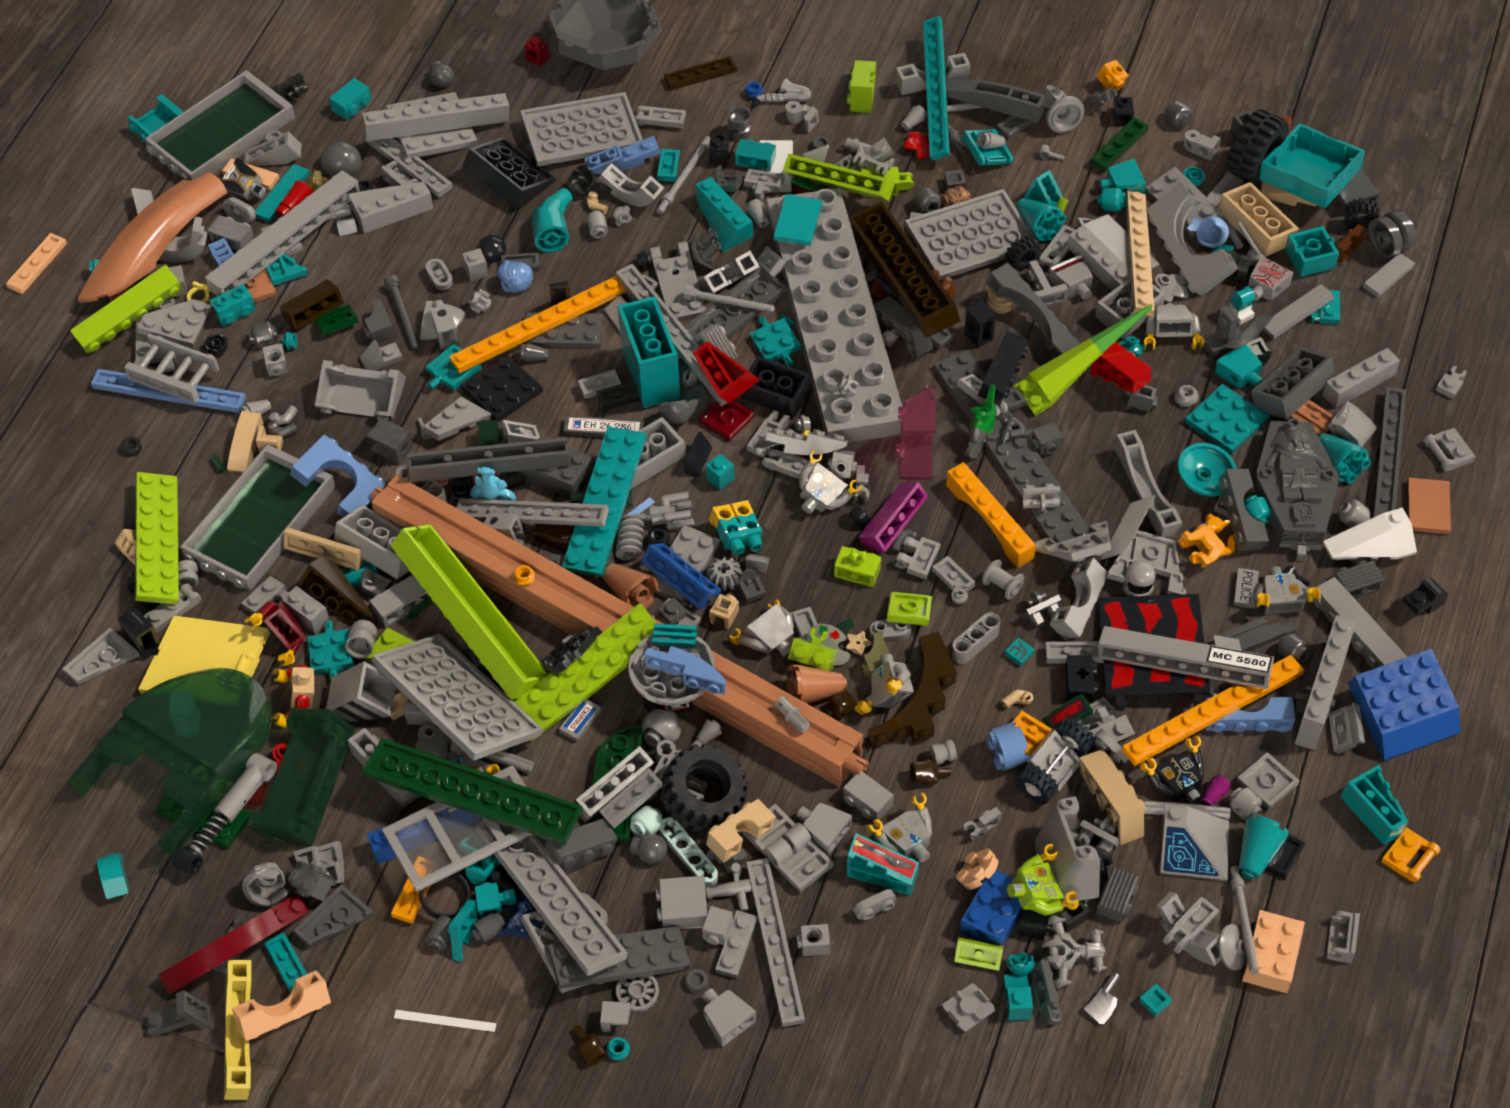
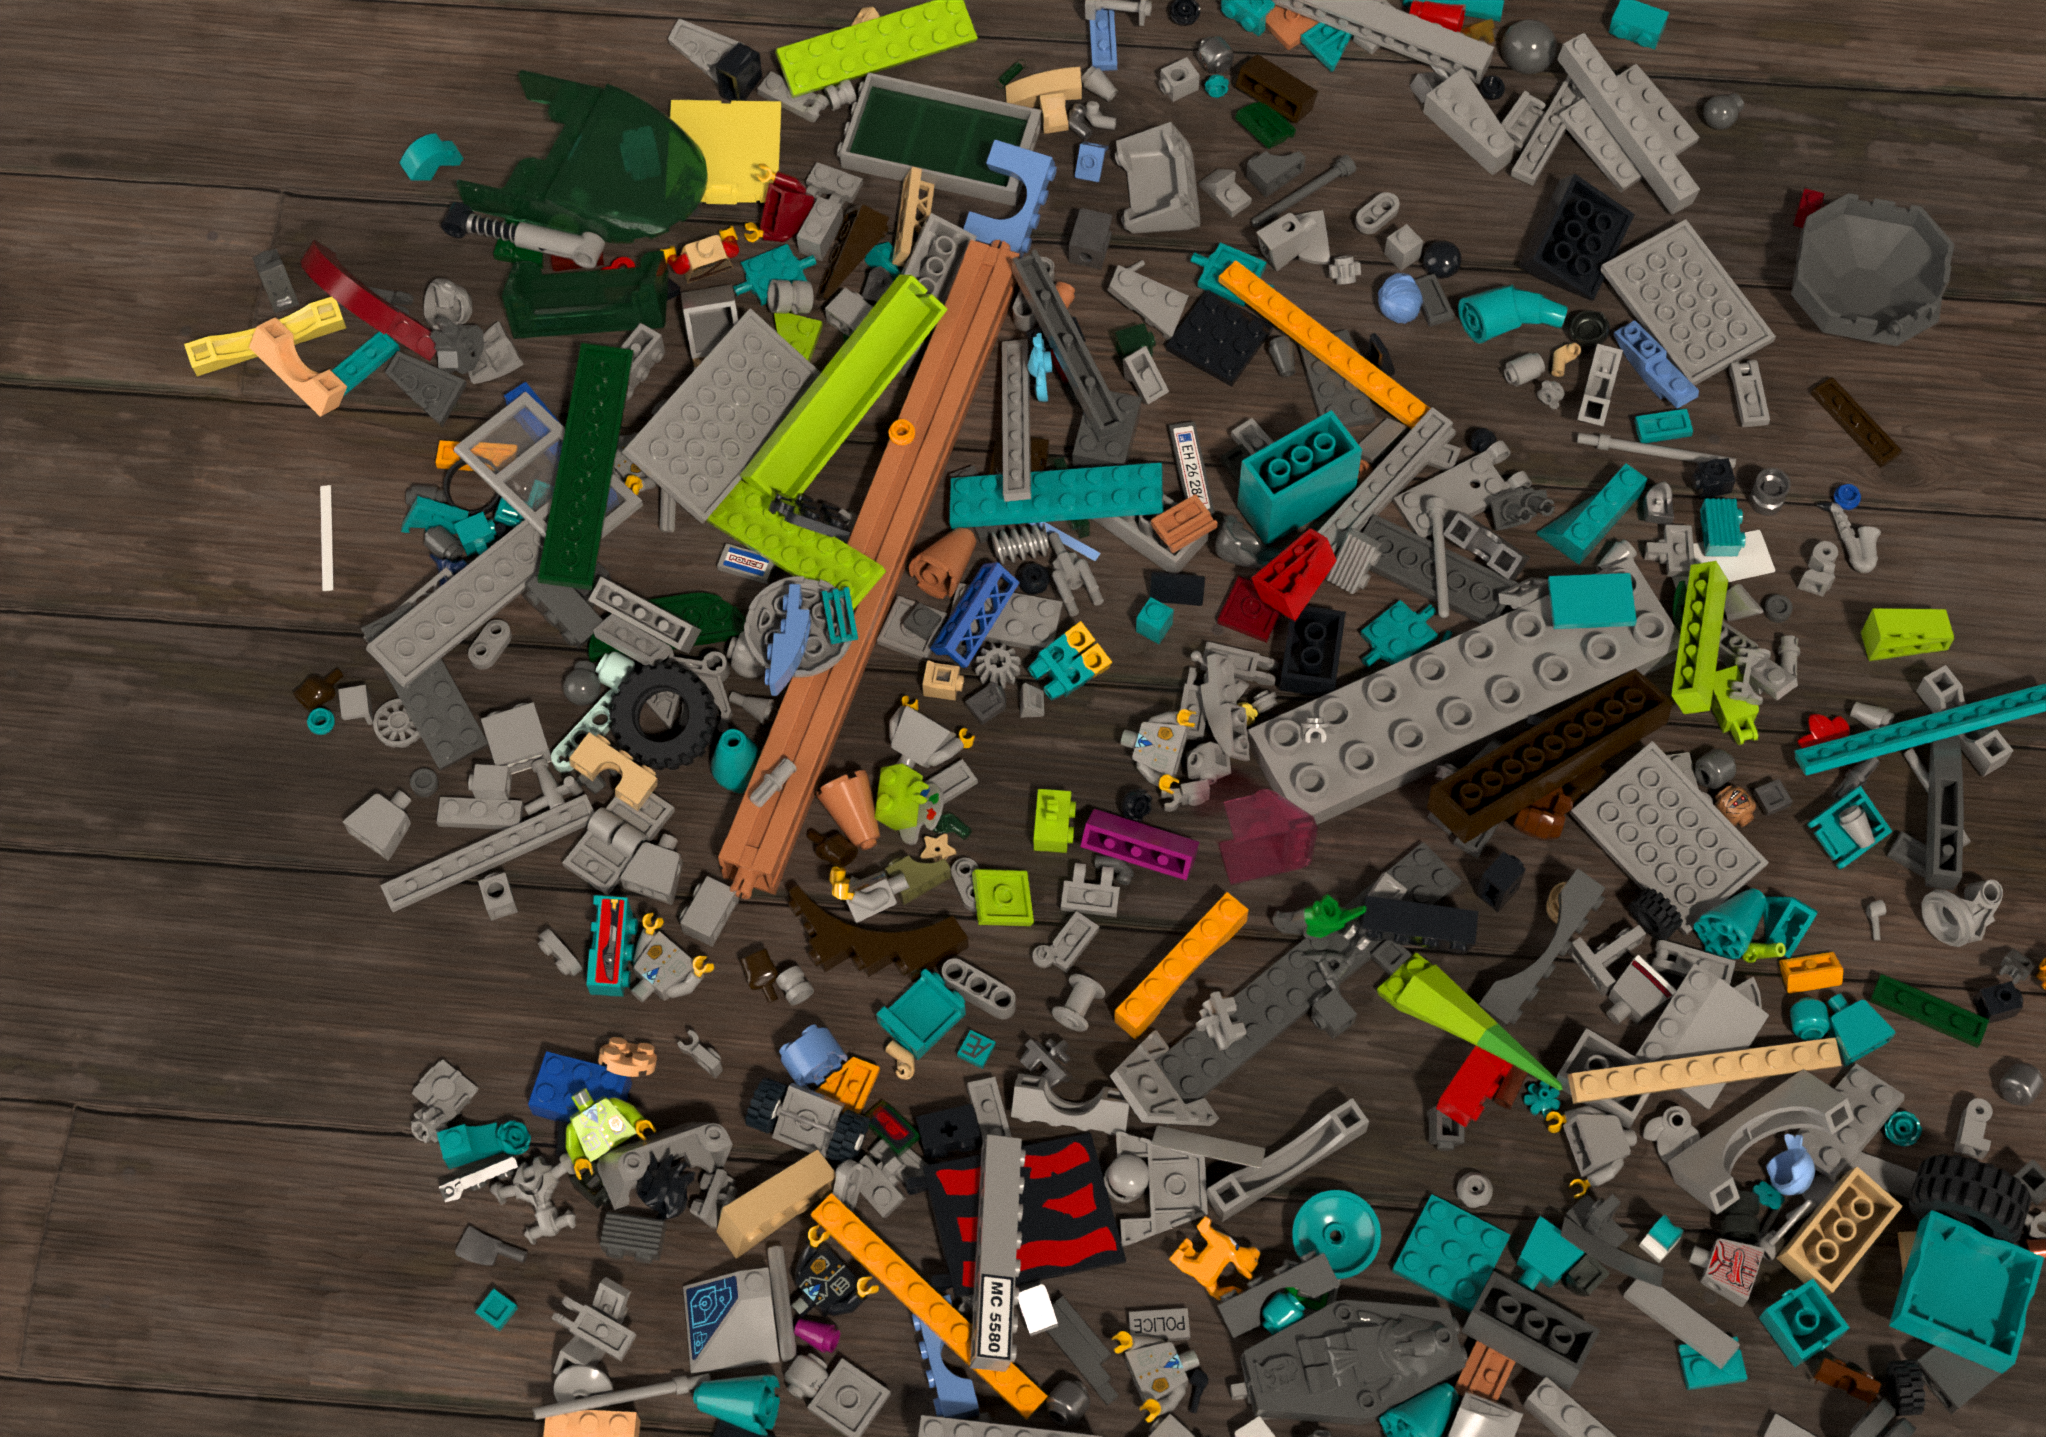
camera: 75 degrees right, 10 degrees up
(319, 426) = (1090, 161): none -> medium blue bracket
(507, 524) = (988, 390): light grey torso -> none
(659, 426) = (1184, 523): none -> nougat plate
(751, 751) = (734, 760): none -> teal cone
(978, 954) = (517, 1086): lime plate -> none
(985, 677) = (922, 1014): none -> teal panel
(996, 1020) = (428, 1124): none -> light grey gear
(1077, 193) = (1811, 972): none -> light orange slope

